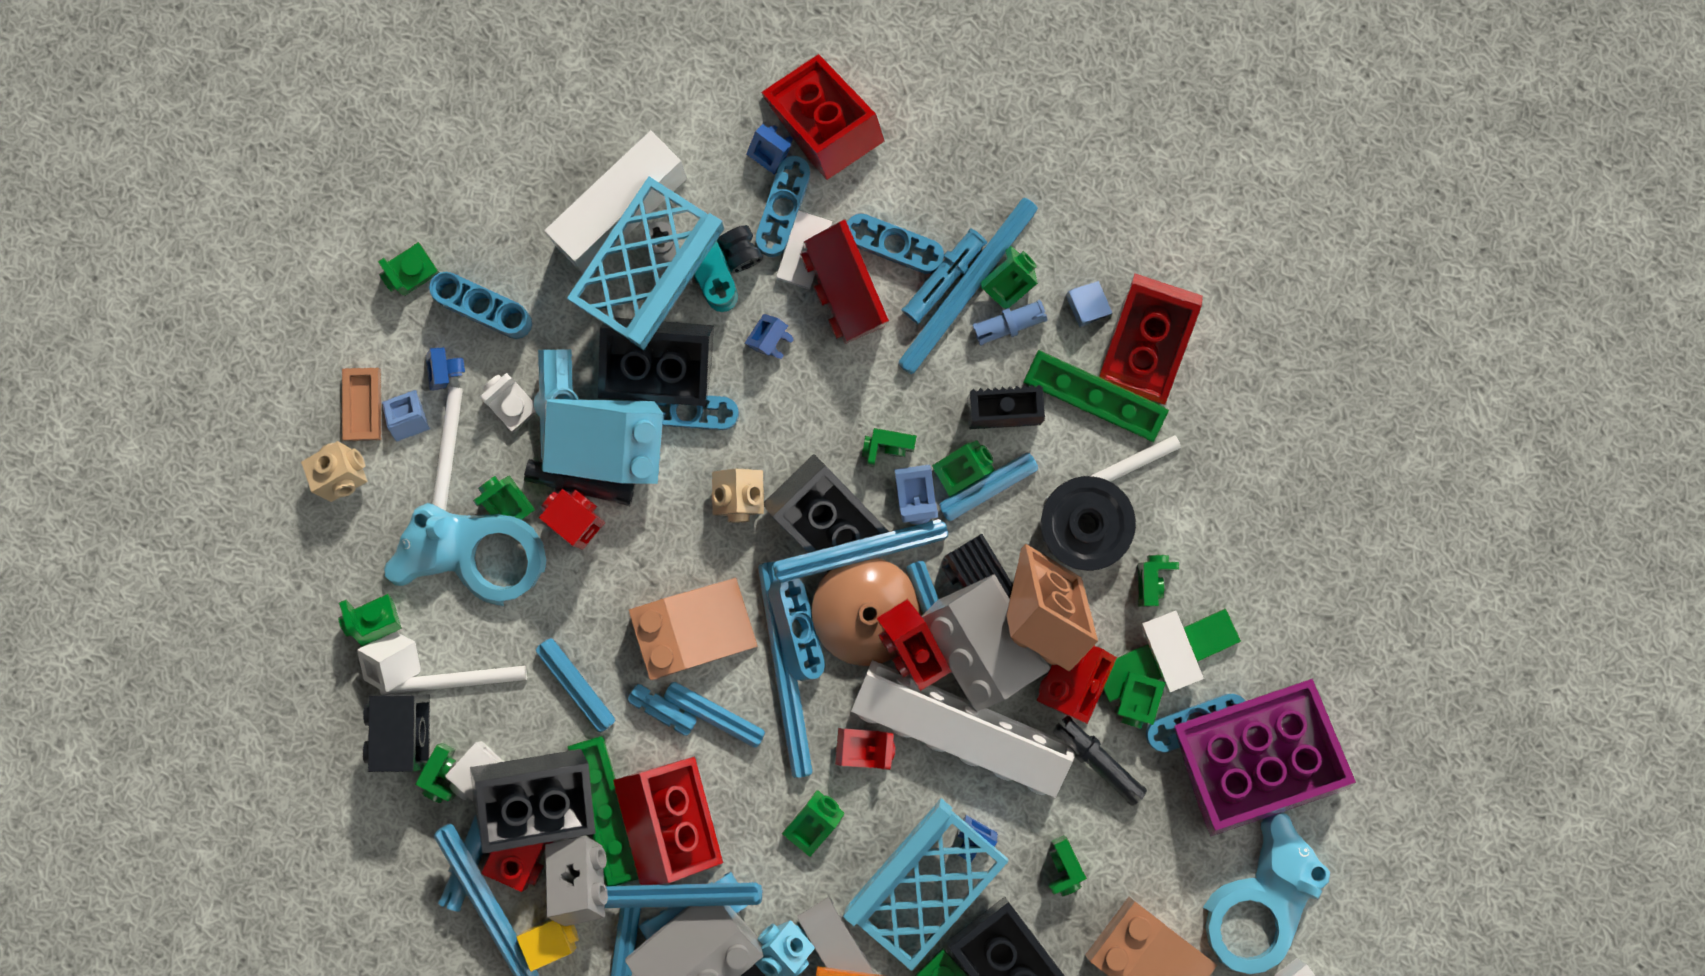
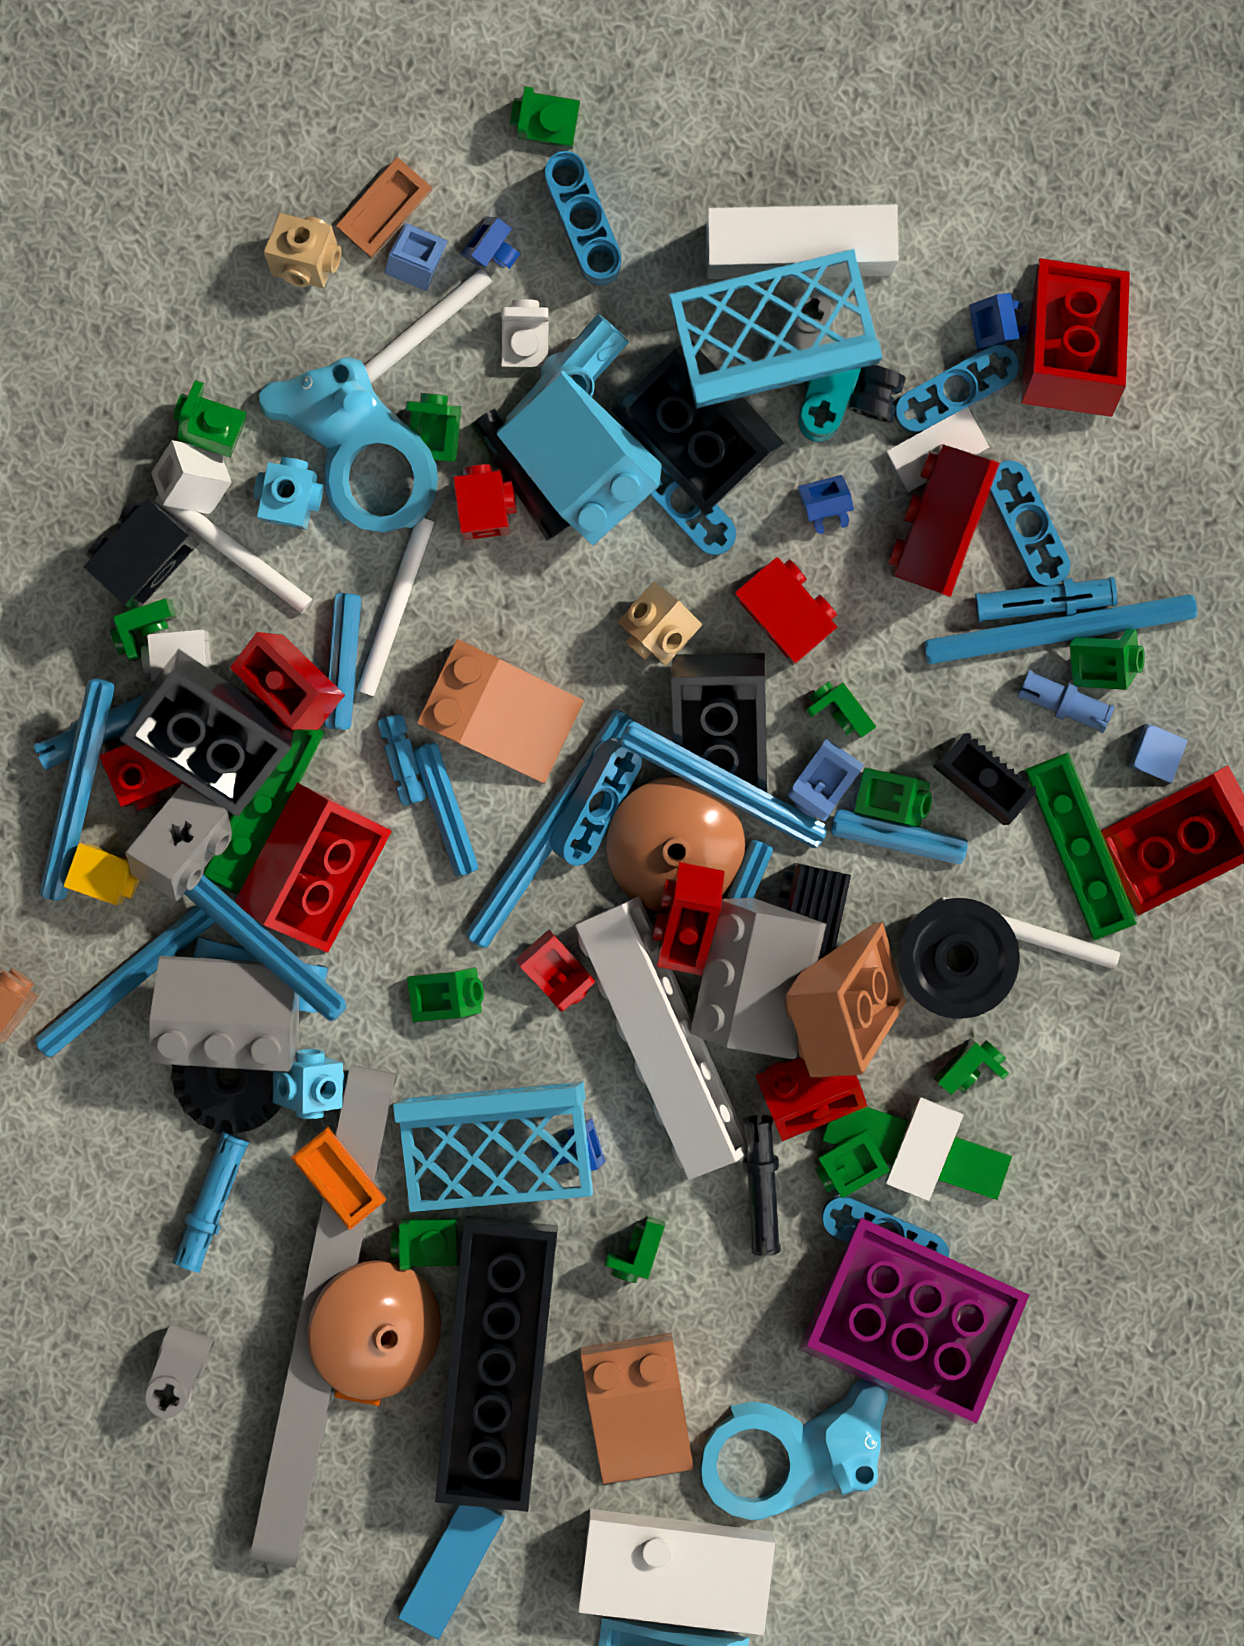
camera: 45 degrees right, 5 degrees up
(466, 619) = (295, 509): none -> medium azure brick
(552, 727) = (287, 681): none -> red brick
(577, 625) = (395, 607): none -> white bar
(803, 417) = (786, 609): none -> red brick

